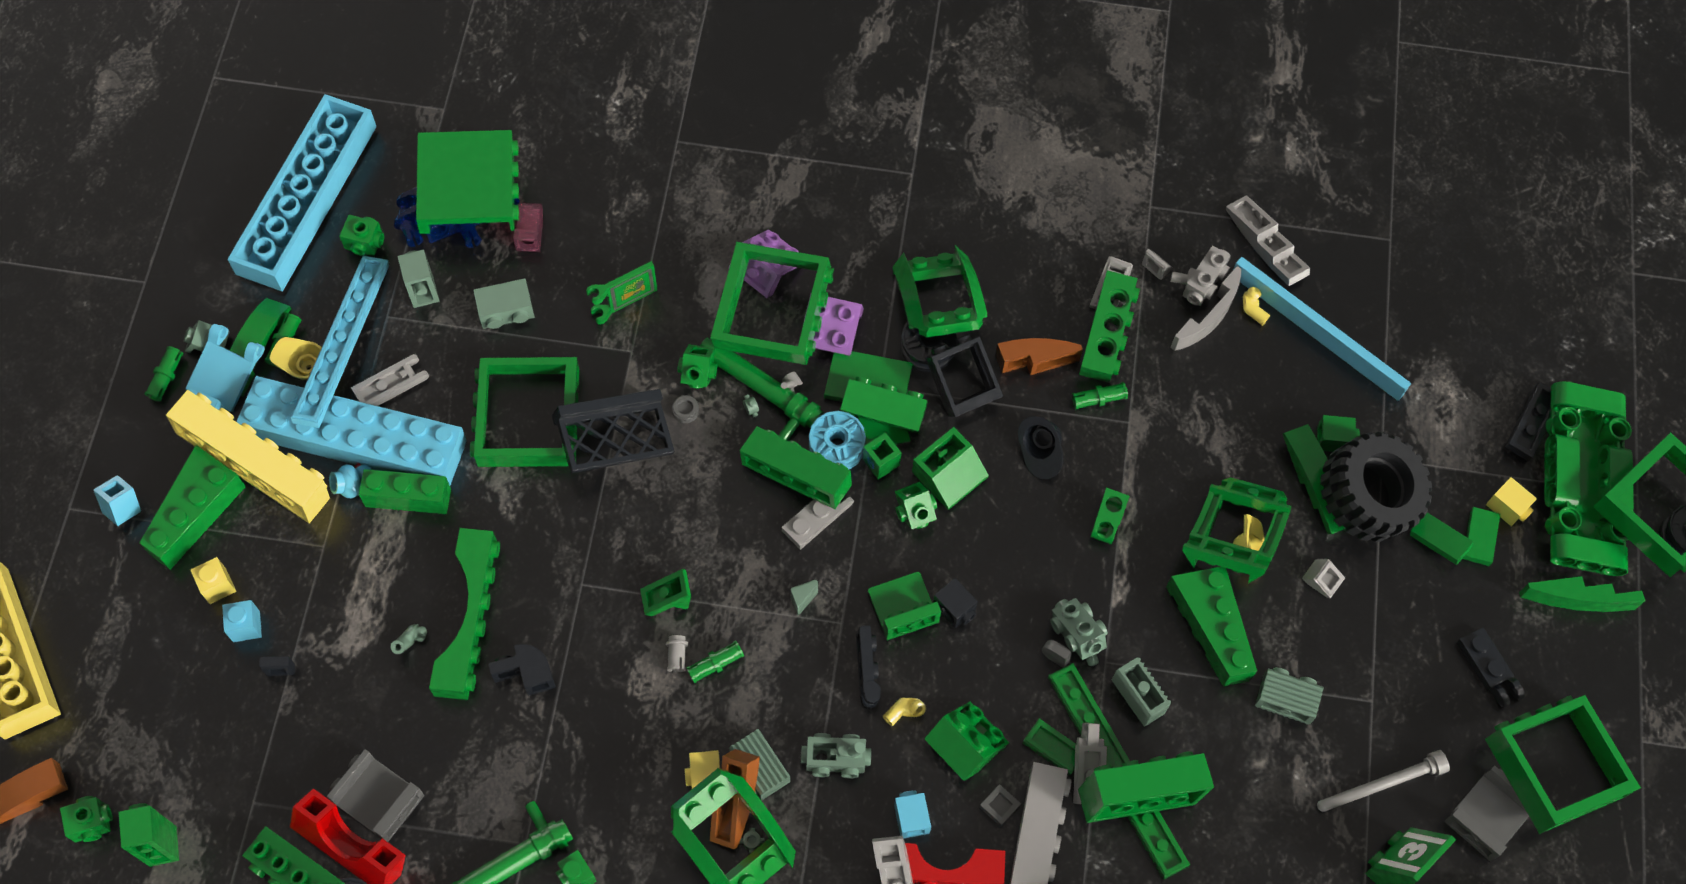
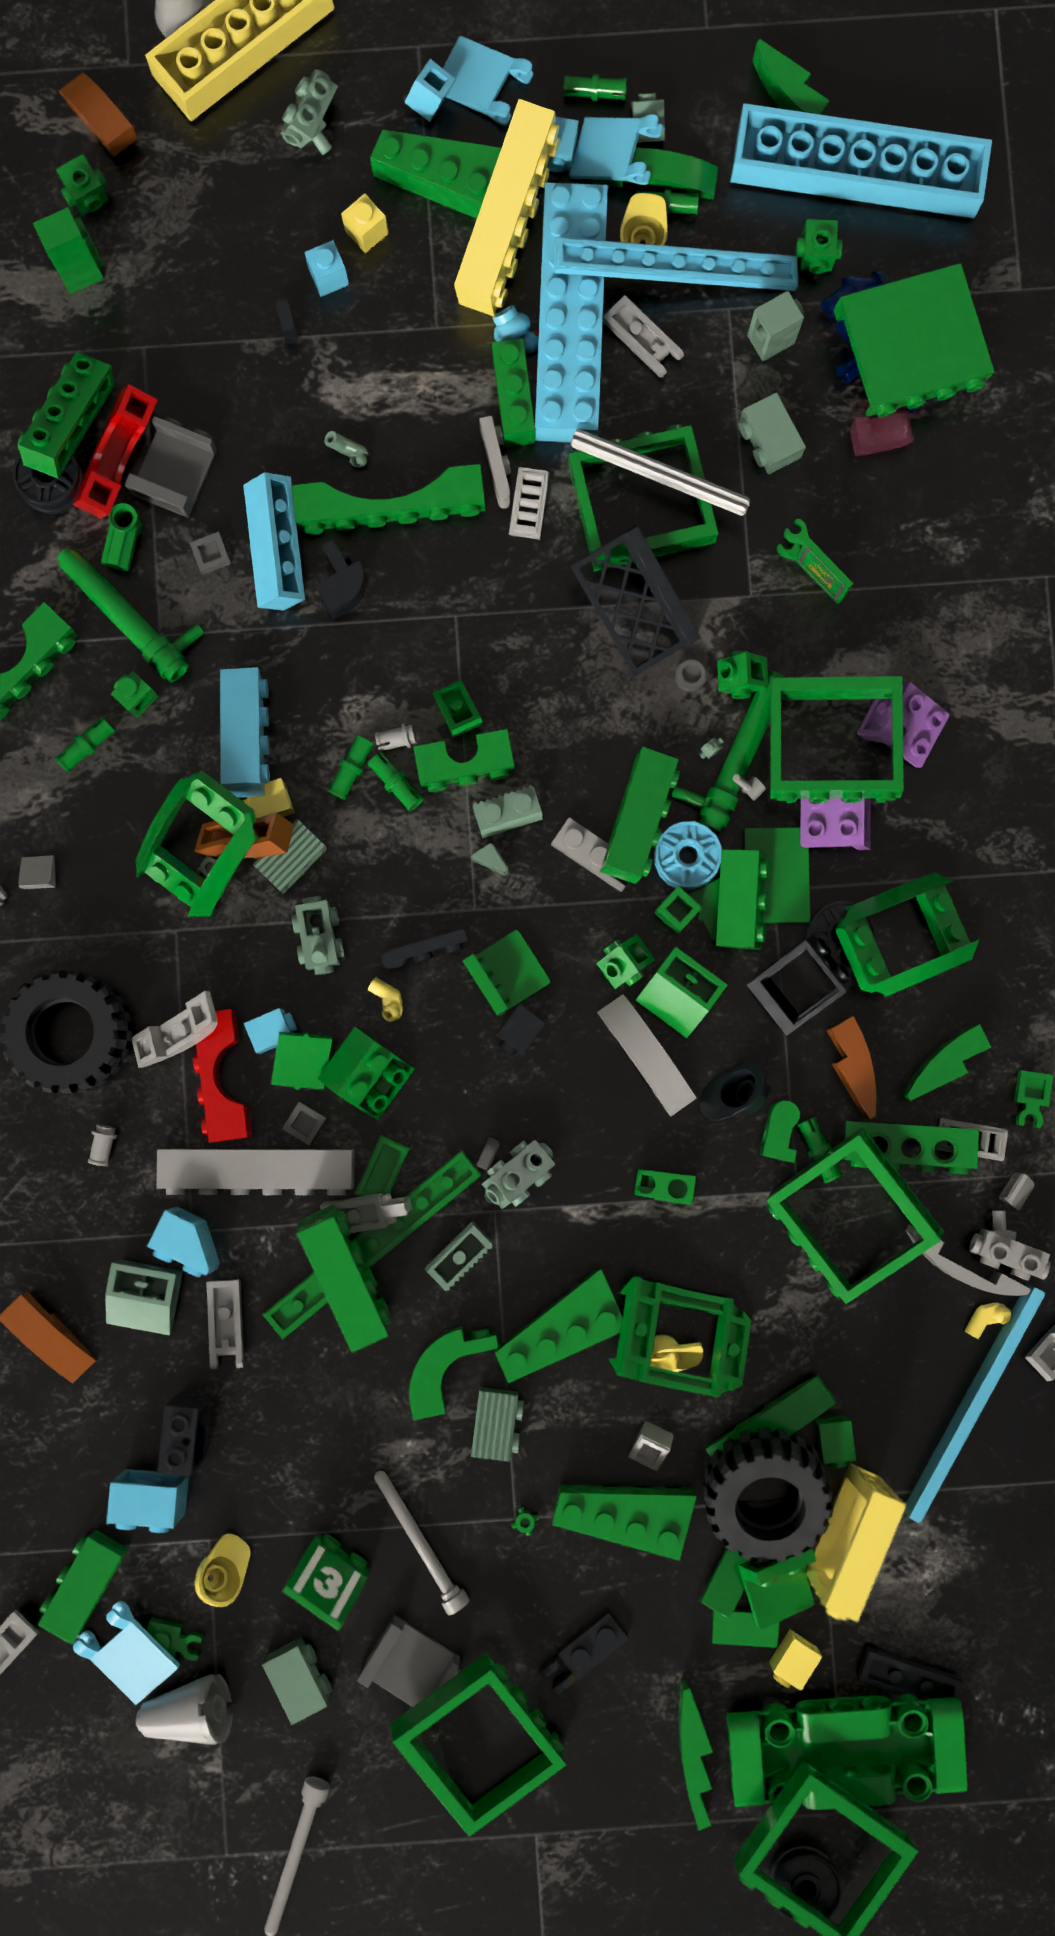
camera: 80 degrees right, 20 degrees up
(95, 605) = (304, 118): none -> sand green brick
(119, 458) = (481, 75): none -> medium azure flag
(217, 230) = (787, 81): none -> green slope
(429, 856) = (121, 540): none -> green piece
(463, 517) = (498, 464): none -> light grey hinge
(464, 780) = (210, 553): none -> dark grey tile
(473, 716) = (274, 541): none -> medium azure brick
(497, 489) = (535, 477): none -> light grey slope
(512, 388) = (660, 472): none -> axle
(638, 776) = (243, 732): none -> medium azure brick
(693, 697) = (350, 767): none -> green pin
(711, 623) = (491, 760): none -> green arch
(765, 573) = (507, 811): none -> sand green brick
(944, 792) = (300, 1060): none -> green piece
(994, 508) = (647, 1055): none -> light grey slope
(1047, 289) = (946, 1062): none -> green slope
(1079, 422) = (778, 1130): none -> green leg
(1082, 235) = (1033, 1091): none -> green plate
(1117, 398) = (892, 1183): none -> green window
(1229, 736) = (426, 1382): none -> green arch
(1375, 692) = (524, 1521): none -> green piece
(1381, 599) = (627, 1515): none -> green wedge
(1437, 407) = (854, 1543): none -> light yellow window
(1451, 501) = (777, 1588): none -> green bracket

